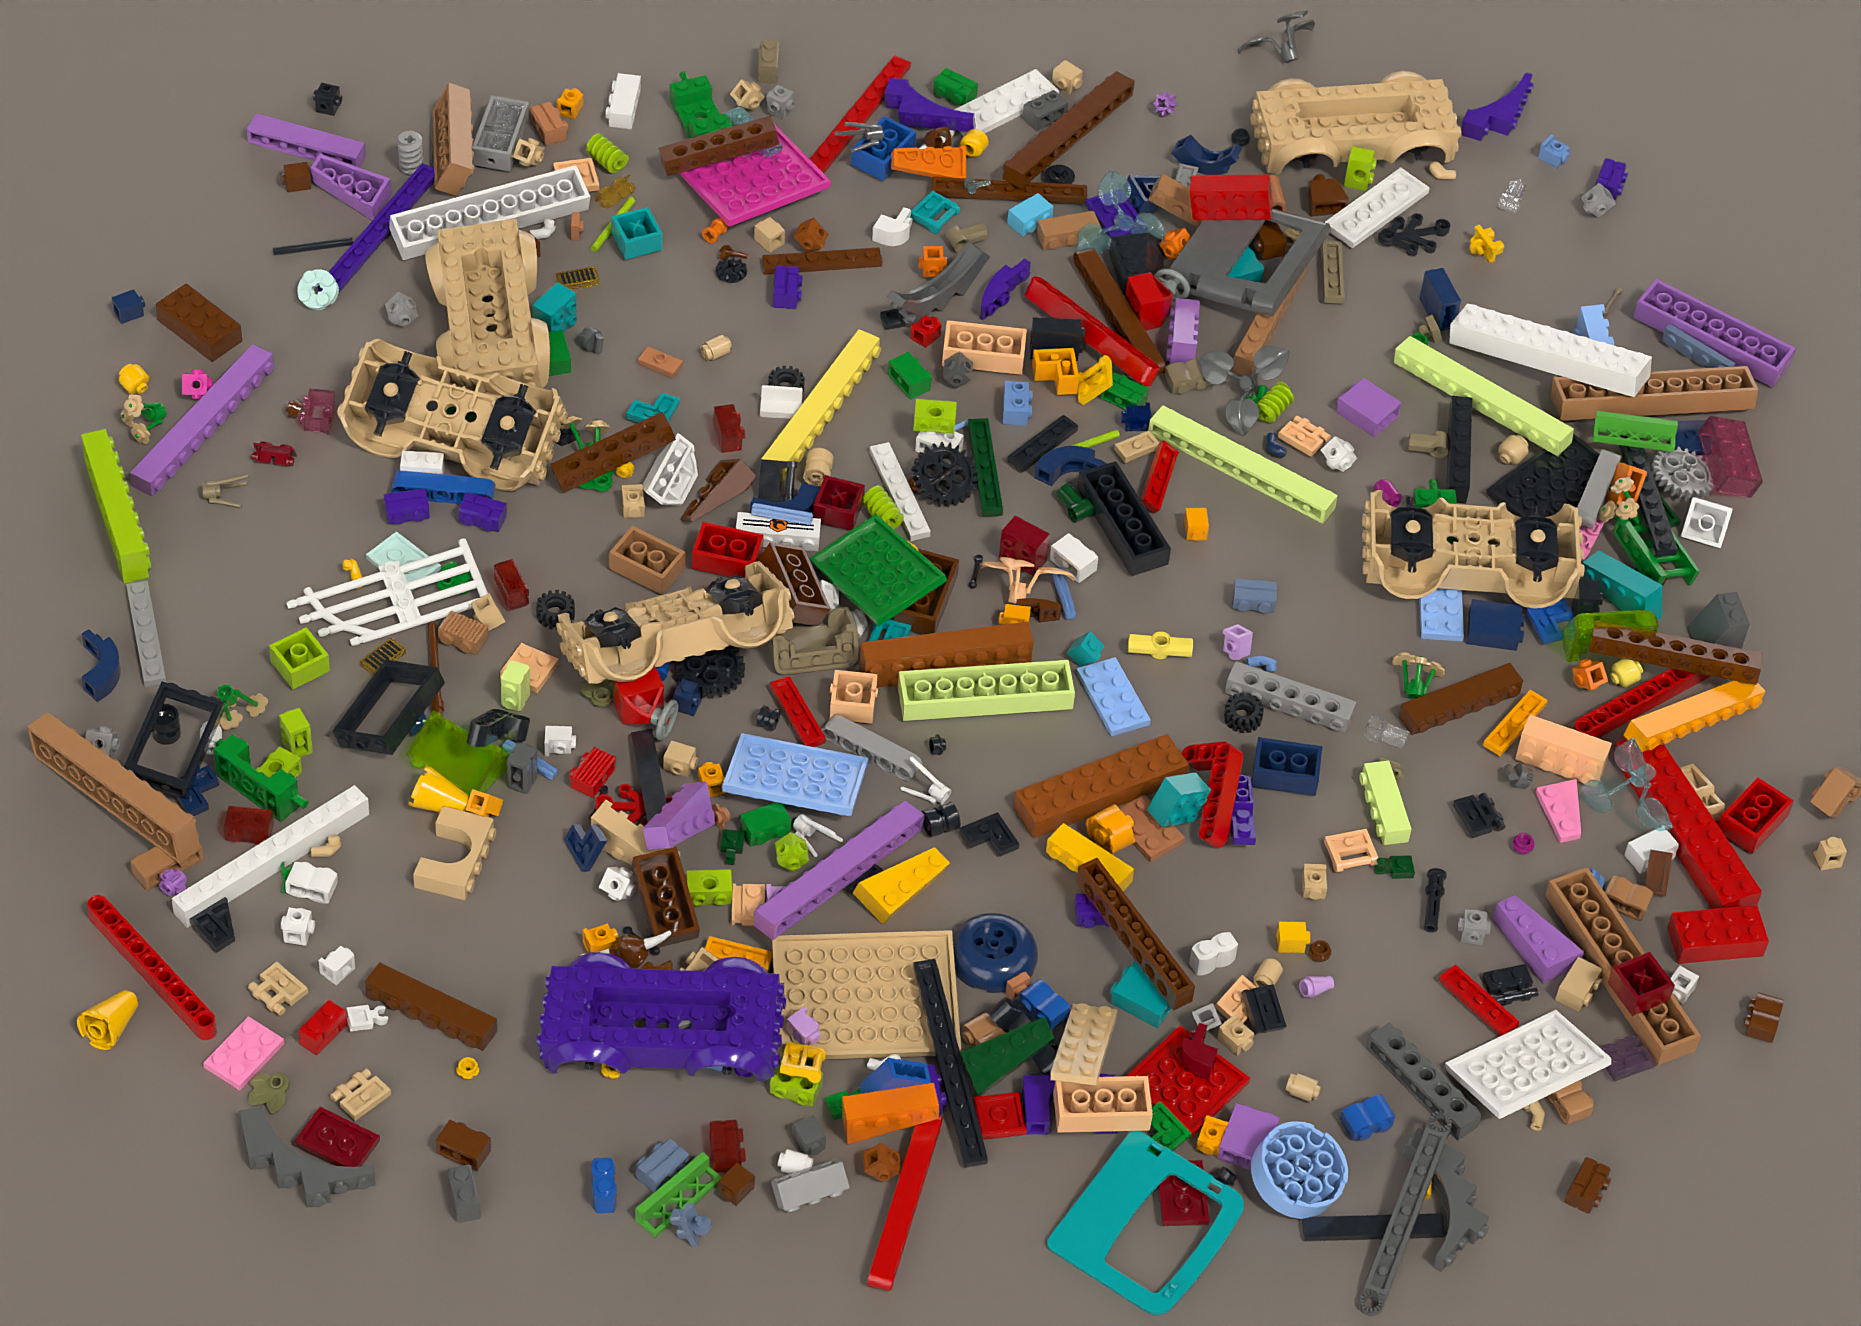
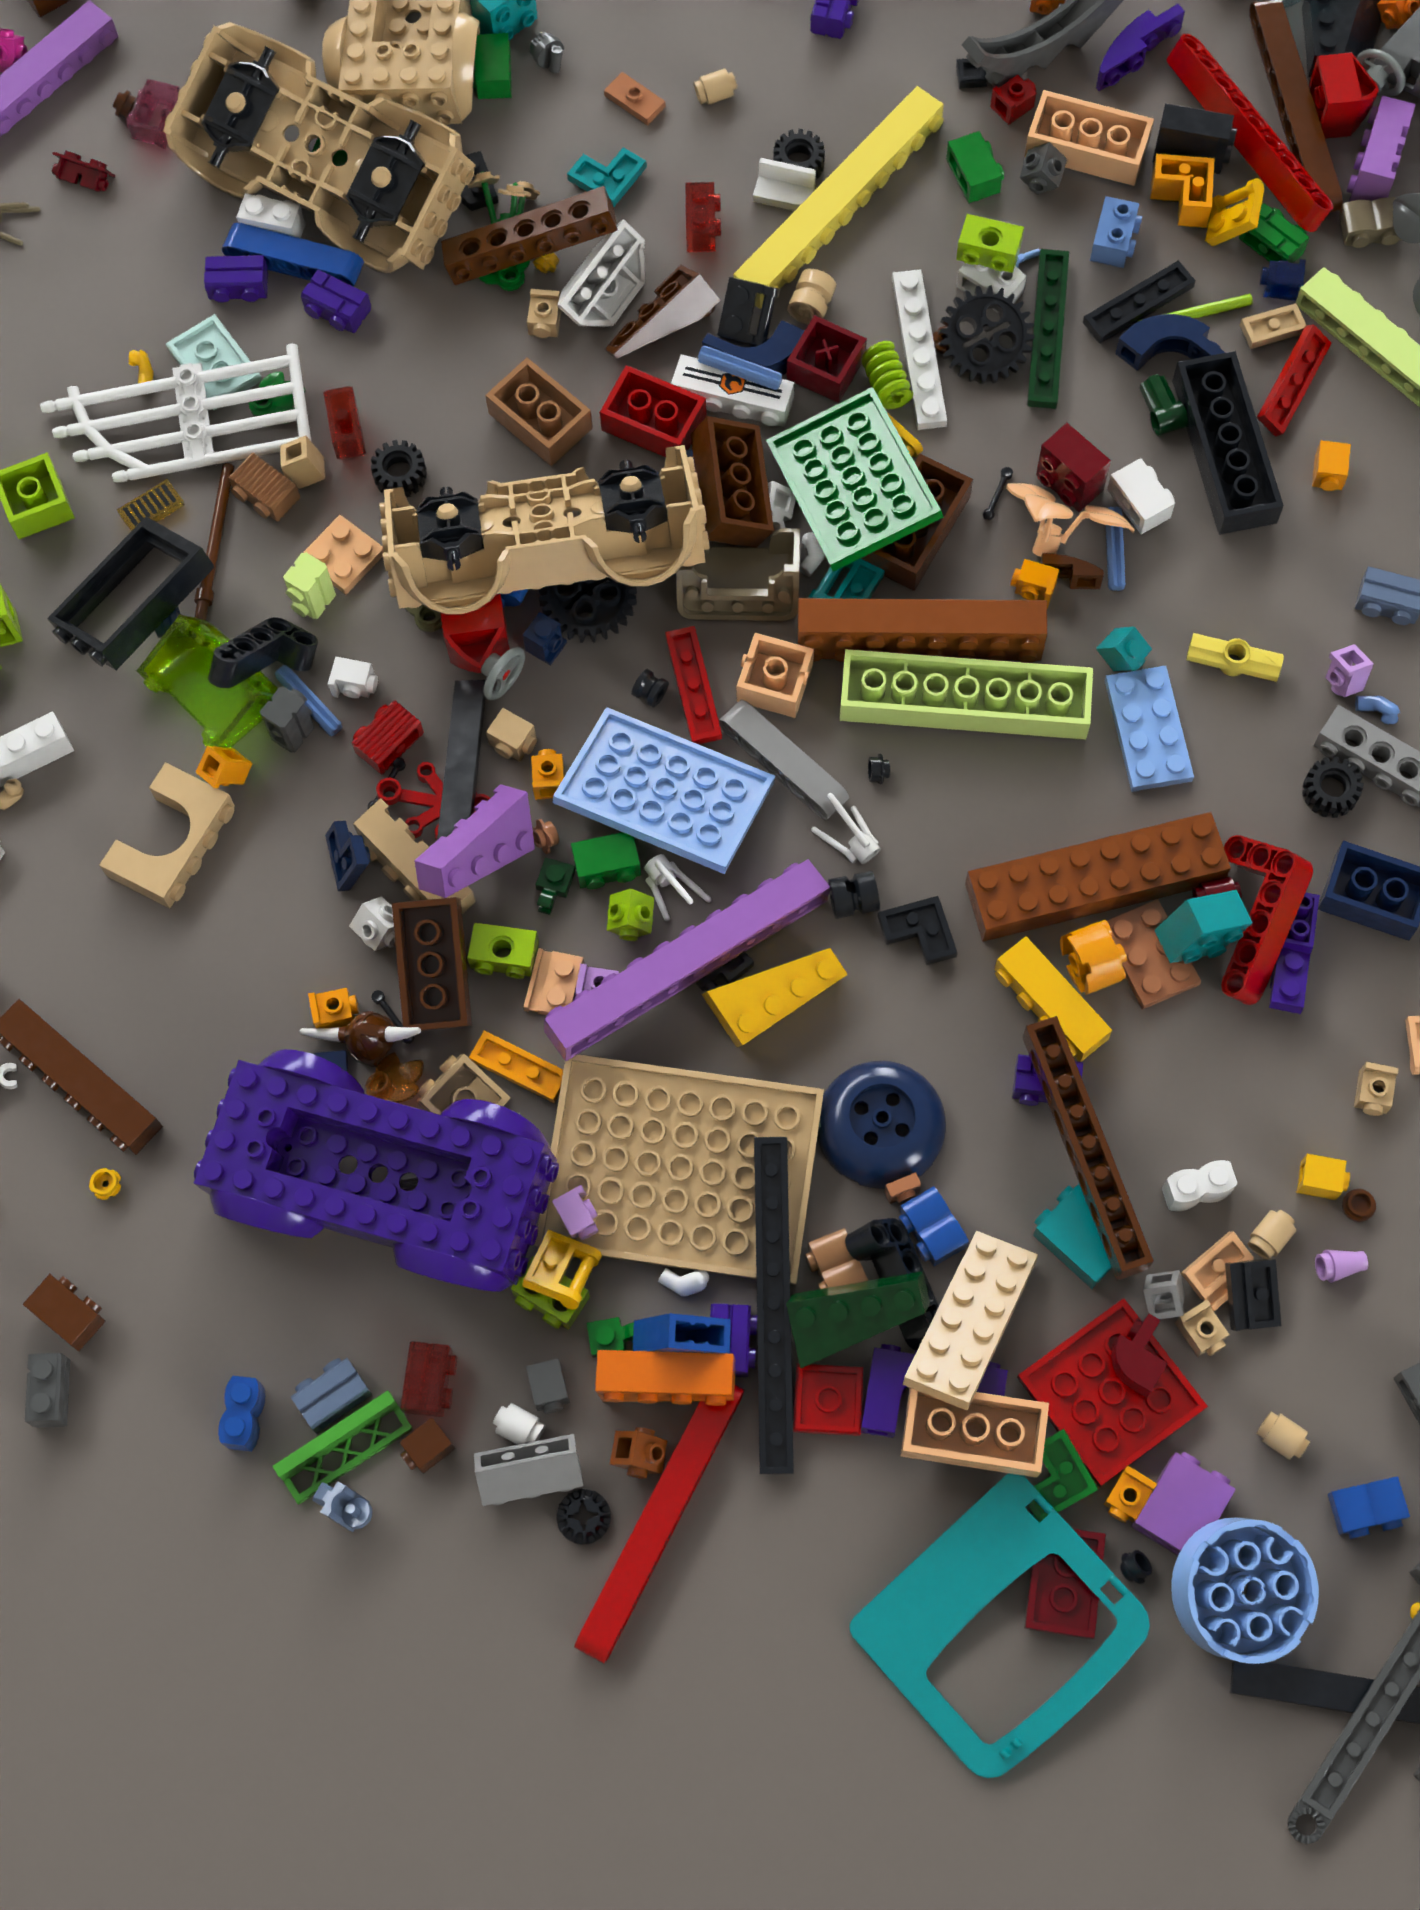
camera: 20 degrees right, 20 degrees up
(436, 791) = (164, 738): yellow cone -> none
(847, 1217) = (595, 1527): none -> black gear

